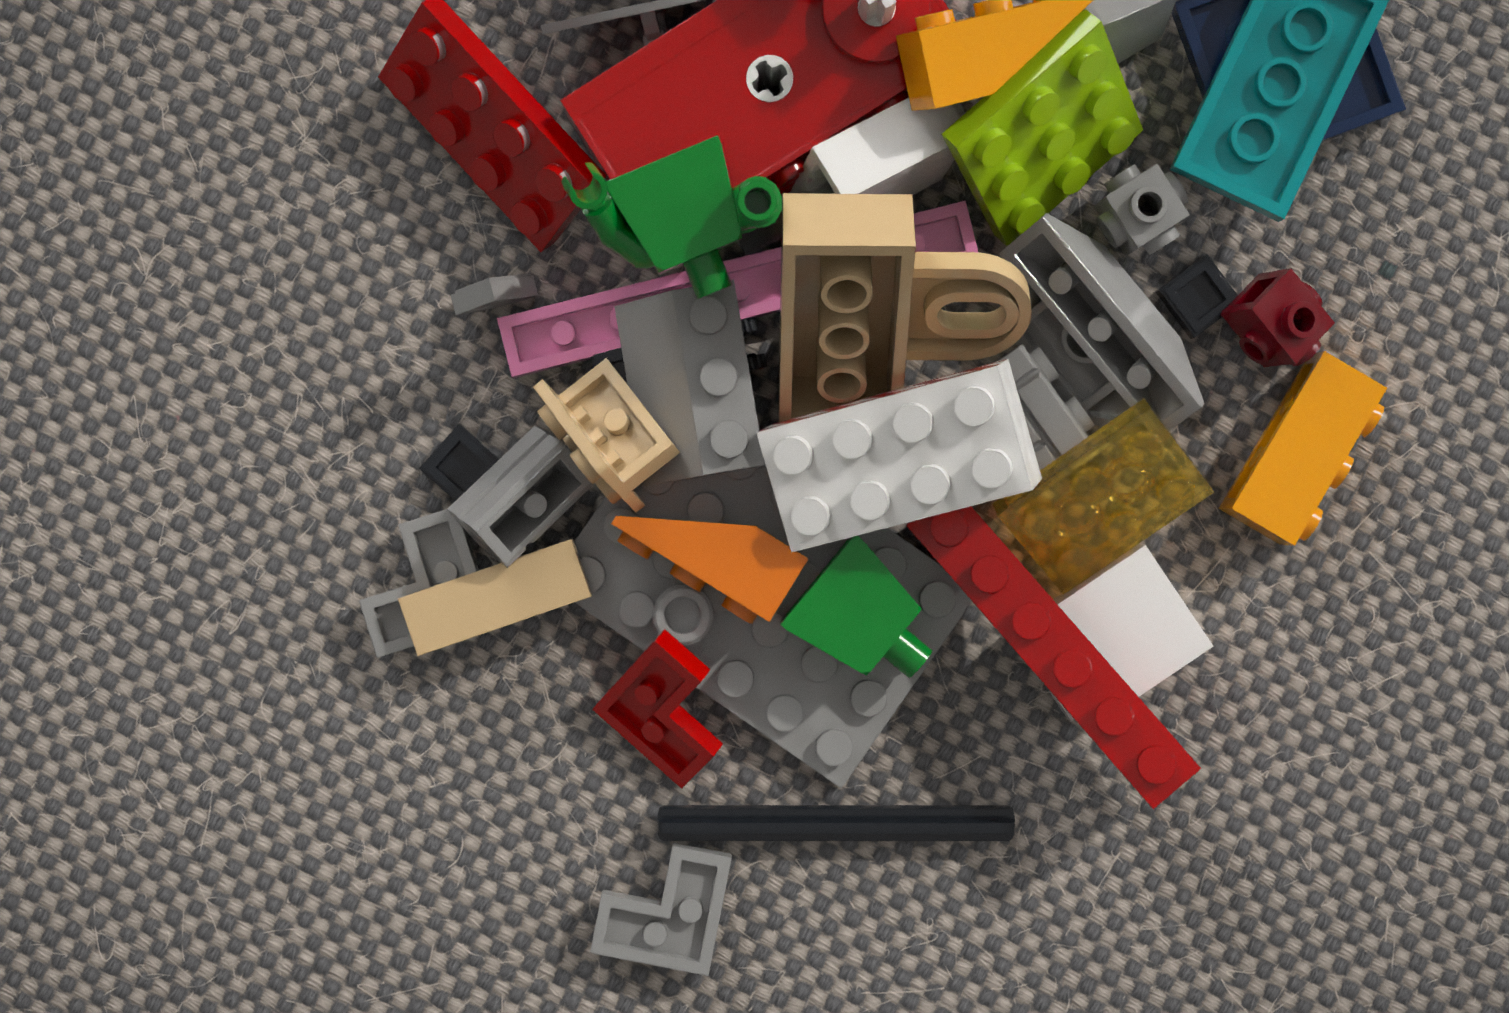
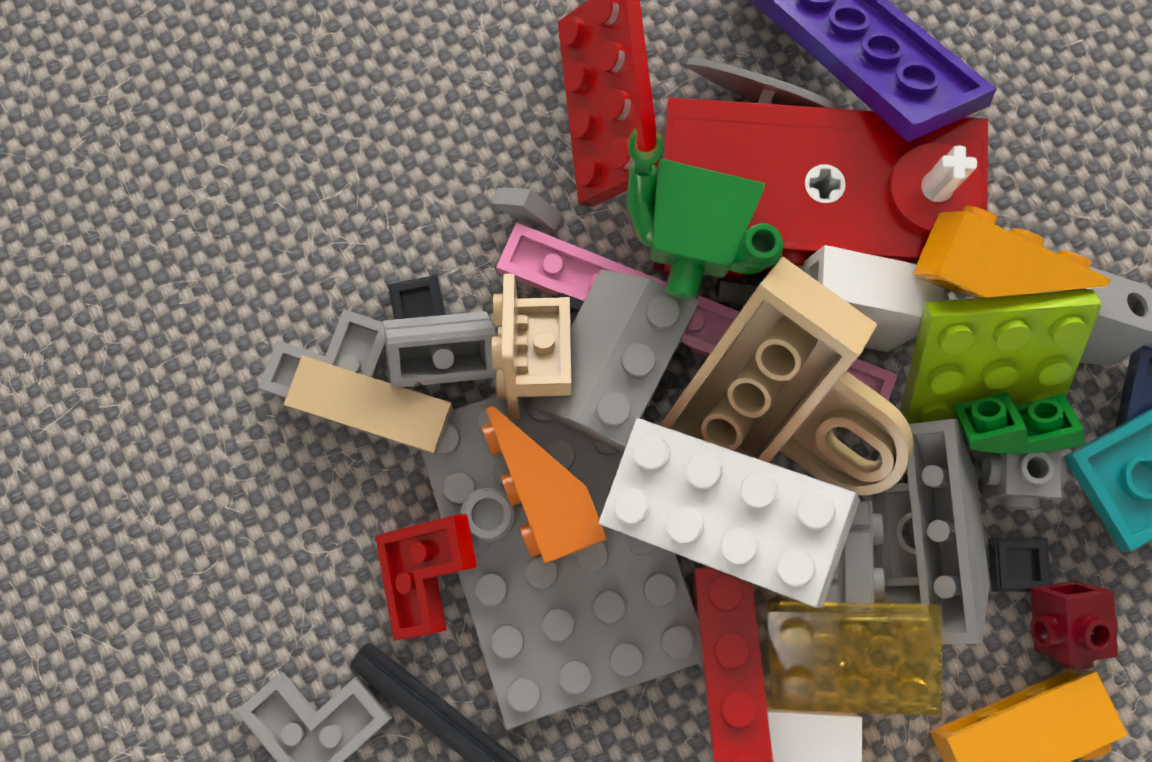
camera: 35 degrees right, 10 degrees down
(859, 613) = (614, 608): green torso -> none
(1097, 186) = (1031, 427): none -> green slope

